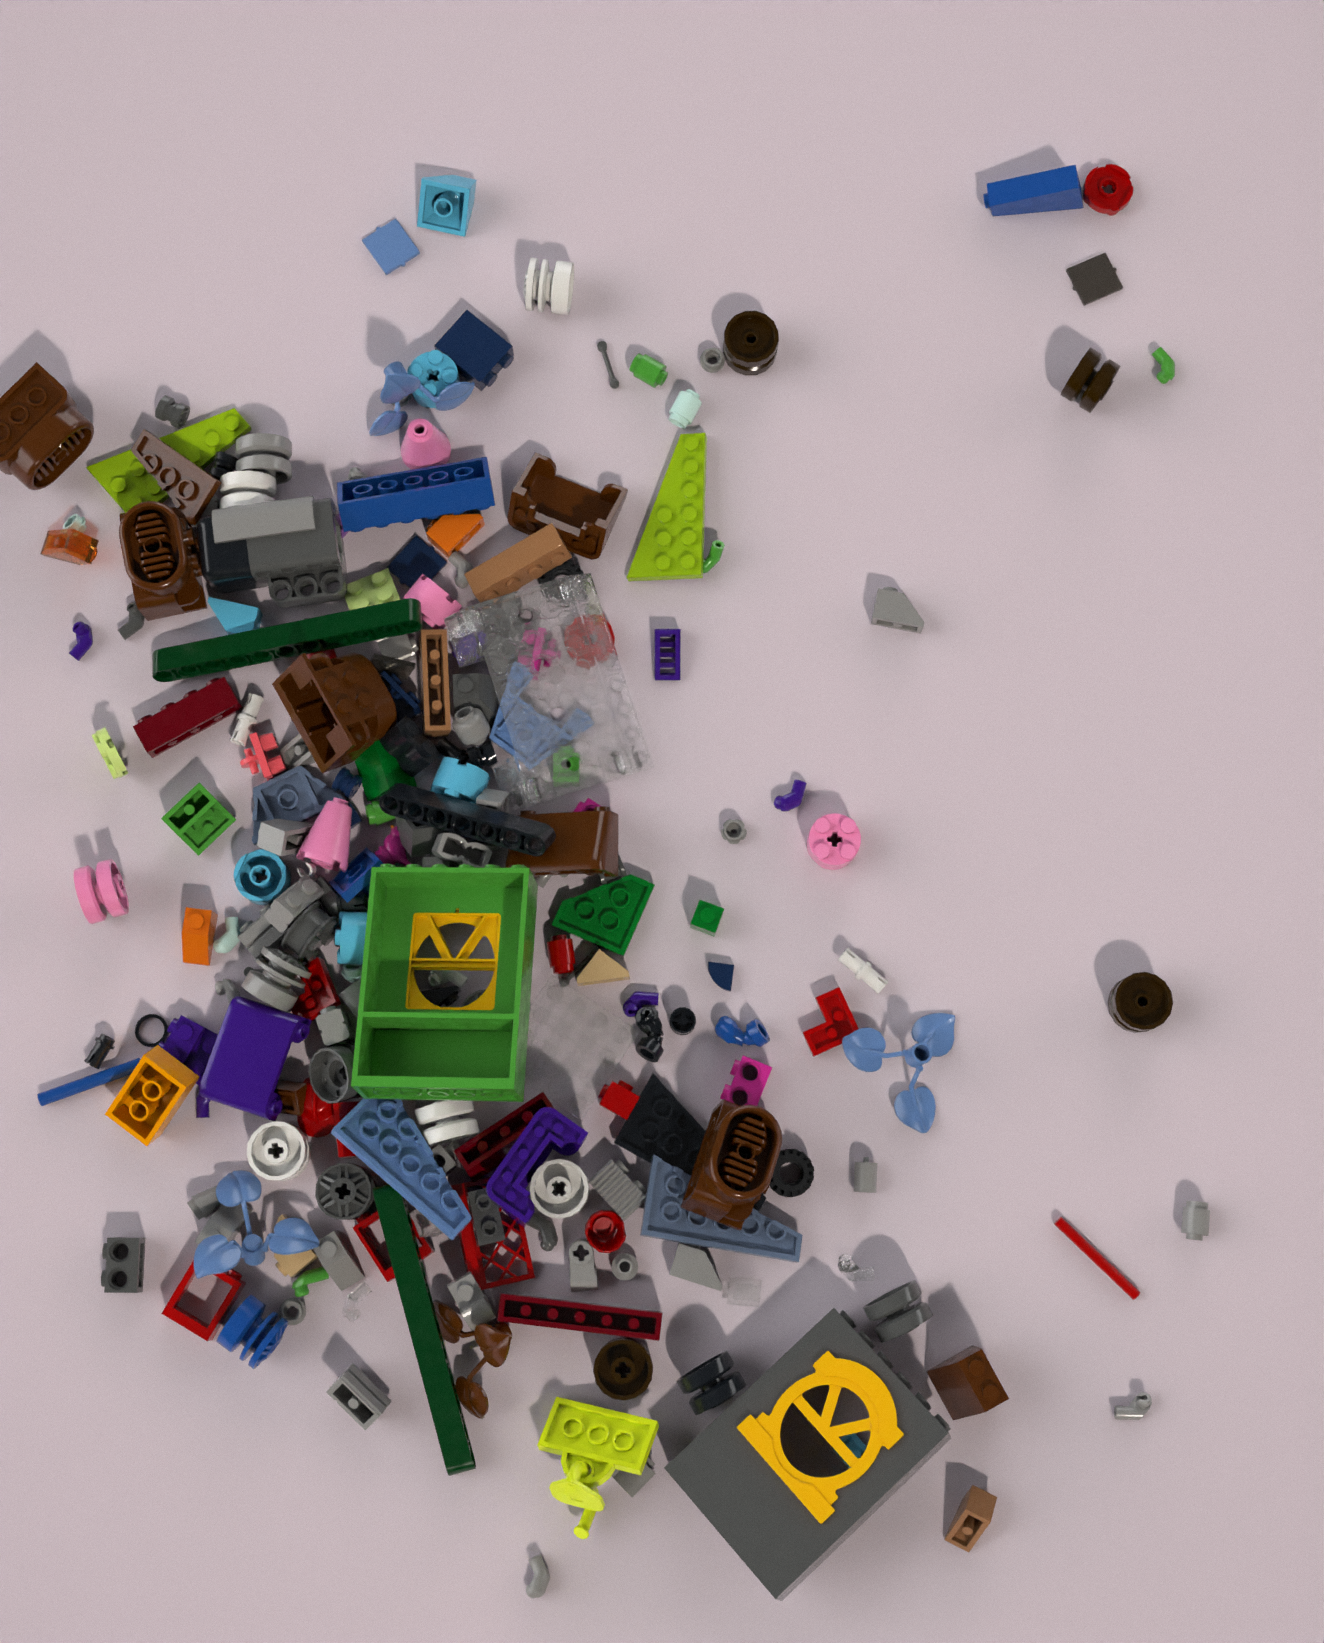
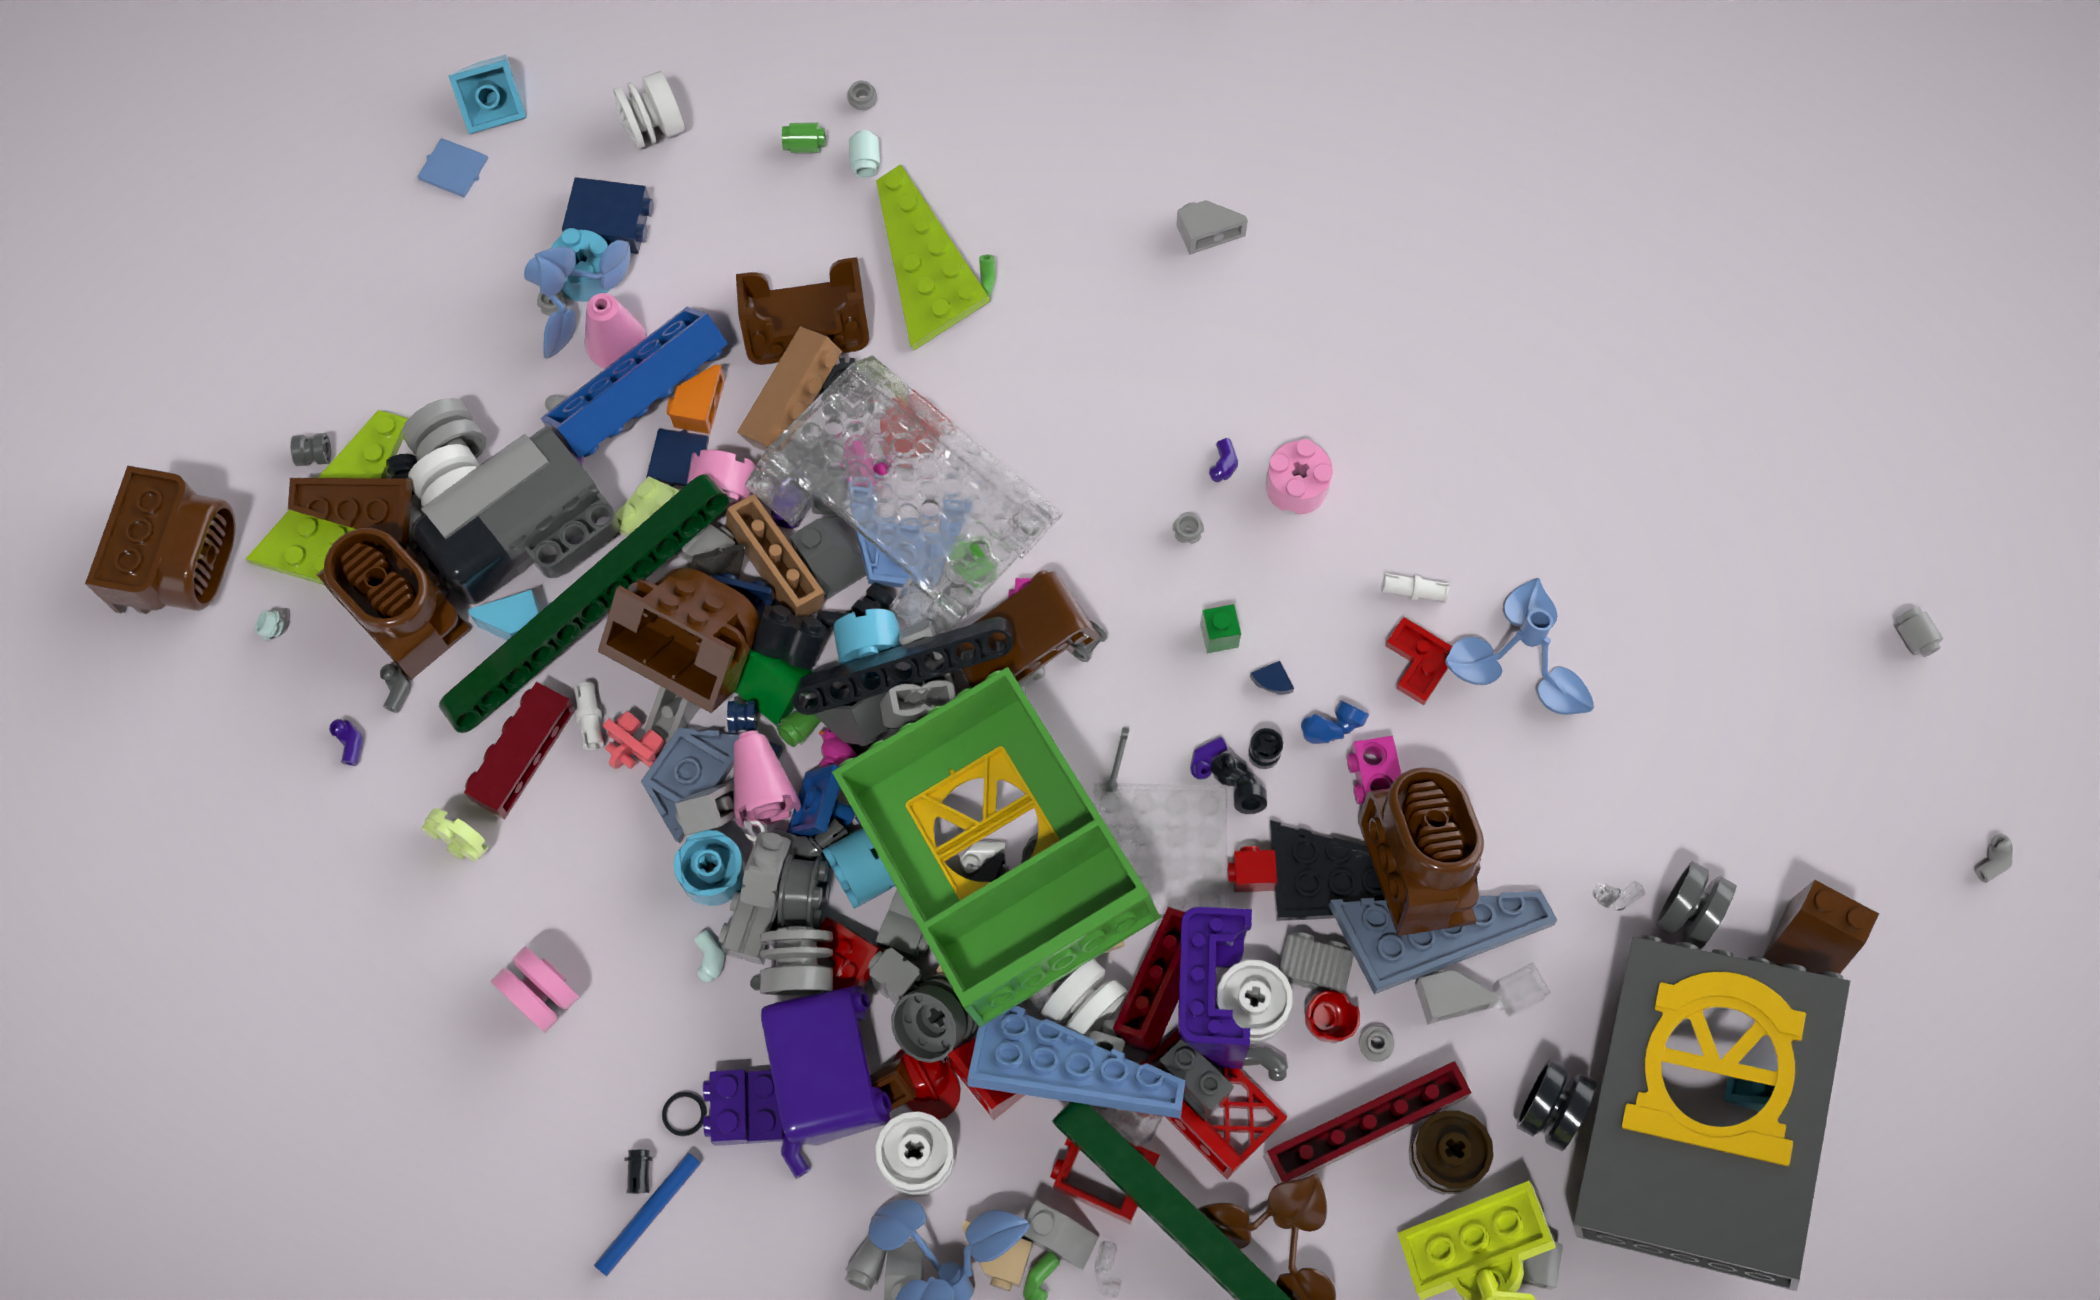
camera: 30 degrees left, 10 degrees down
(70, 546) = (276, 648): clear orange slope -> none
(152, 1095) = (732, 1178): light orange brick -> none
(198, 818) = (598, 849): bright green brick -> none
(198, 936) = (675, 975): orange slope -> none
(226, 986) = (744, 1012): light grey arm -> none
(351, 972) = (875, 910): light aqua plate -> none
(353, 1205) = (1010, 1168): dark grey wheel -> none
(462, 566) = (728, 430): light grey arm -> none
(471, 726) = (842, 578): light grey head -> none
(471, 1300) = (1240, 1182): light grey brick -> none
(561, 954) = (1090, 757): red brick -> none
(582, 1270) = (1334, 1075): light grey piece -> none
(602, 347) = (738, 144): dark grey hinge -> none
(602, 970) = (1146, 746): tan slope -> none
(606, 913) = (1110, 688): green plate -> none
(676, 633) = (999, 371): dark purple slope -> none
(750, 343) = (892, 55): dark brown wheel -> none
(806, 1173) = (1502, 832): black tyre -> none
(865, 1176) = (1562, 792): light grey piece -> none
(971, 1518) = (1921, 1078): medium nougat slope -> none
(1097, 1258) = (1850, 731): red bar -> none
(1147, 989) = (1713, 452): dark brown wheel -> none

